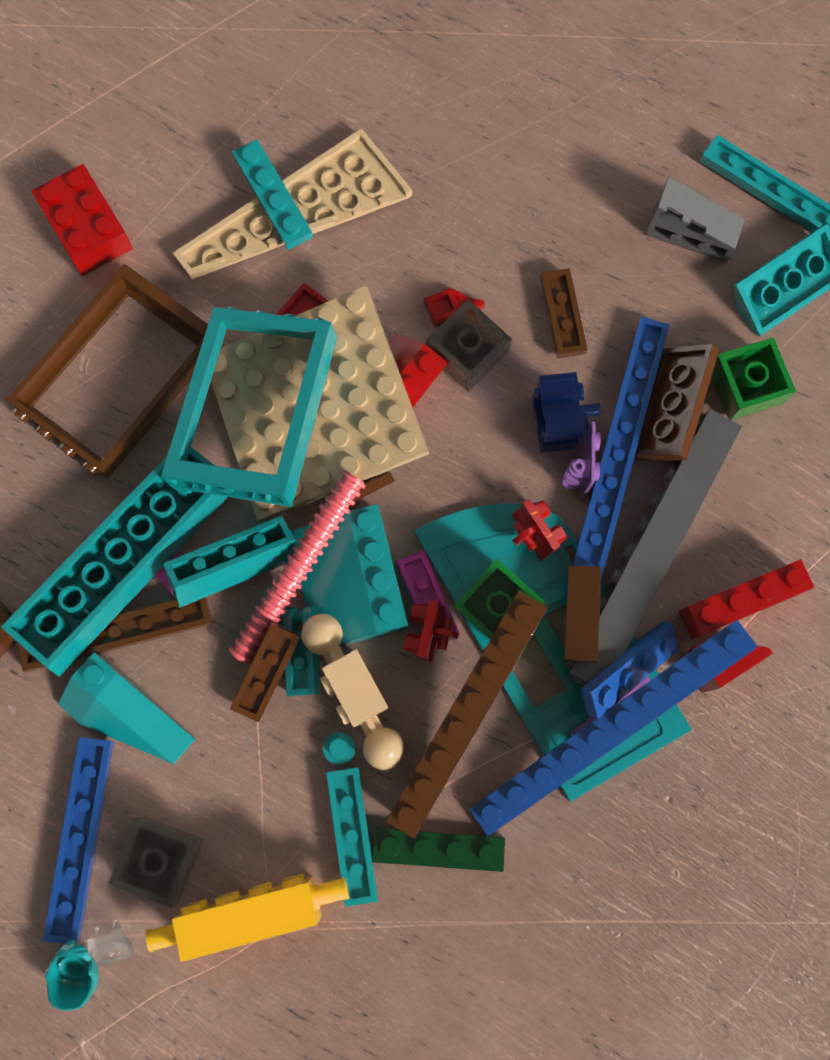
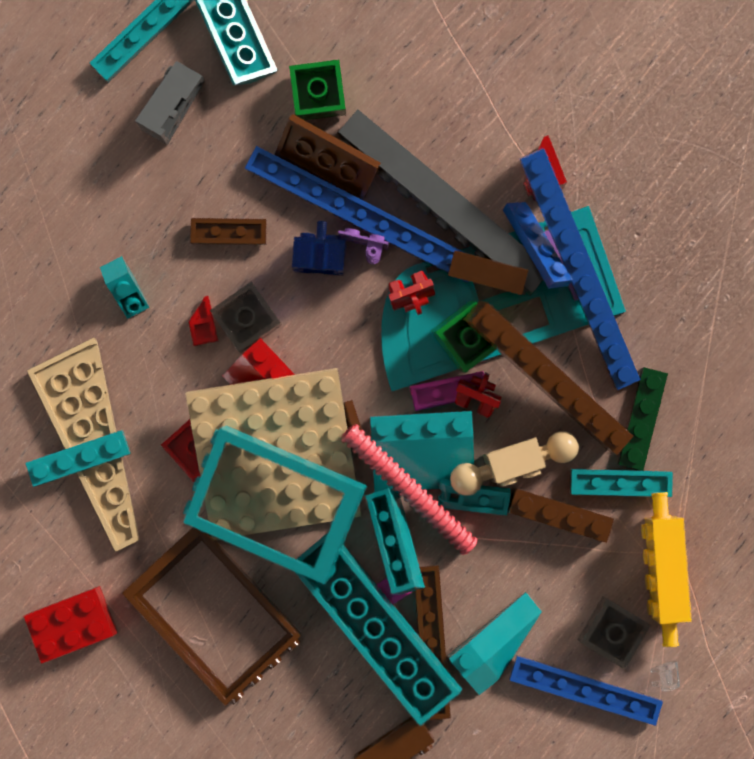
camera: 75 degrees left, 10 degrees up
(71, 977) = (685, 706): teal hair -> none
(265, 671) = (485, 528): reddish brown plate -> none
(297, 764) = (560, 515): none -> reddish brown brick
(339, 748) = (554, 481): teal plate -> none
(475, 211) = (124, 287): none -> teal slope
(746, 599) = (497, 139): red brick -> none

